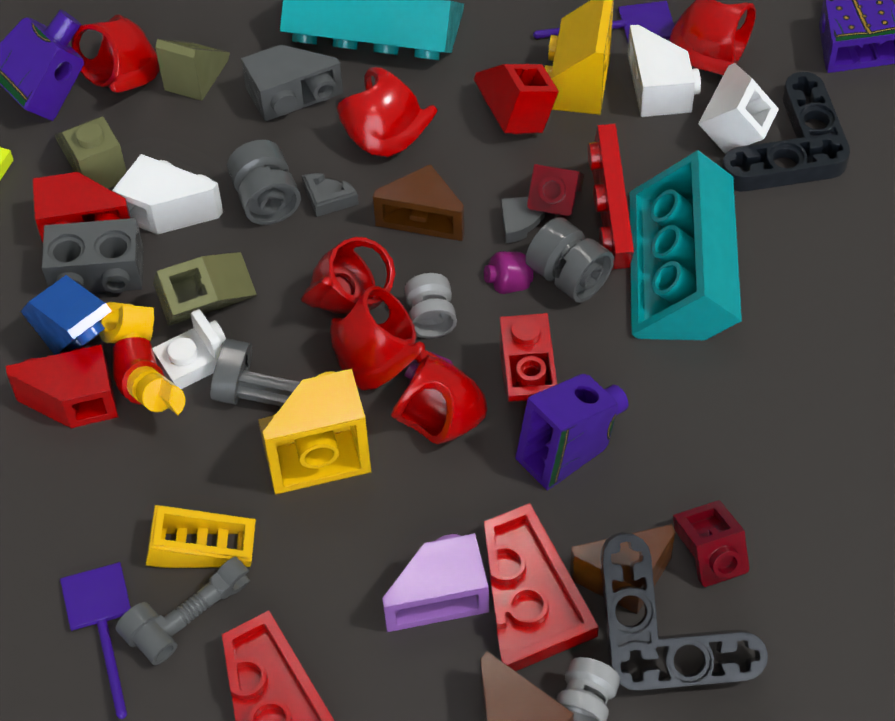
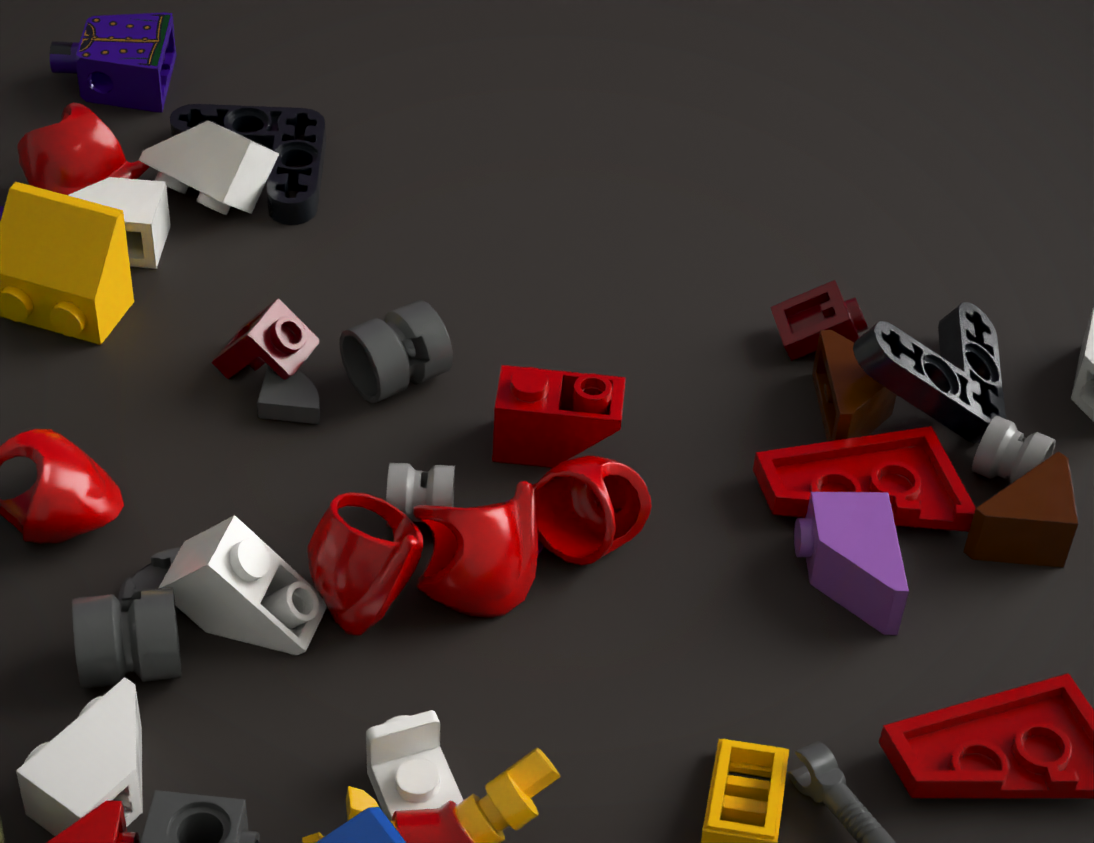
camera: 85 degrees left, 10 degrees down
(202, 284) = (314, 742): olive slope -> none
(235, 381) = (487, 725): dark grey piece -> none
(316, 226) = (244, 590): none -> white slope
(317, 434) = (624, 624): yellow slope -> none
(420, 205) = (244, 468): reddish brown slope -> none
(508, 272) = (370, 426): magenta piece -> none
(518, 96) = (88, 343): red slope -> none
(567, 427) = (666, 396): dark purple torso -> none
(610, 195) = (316, 287): red wing -> none
(684, 253) = (390, 252): teal slope -> none

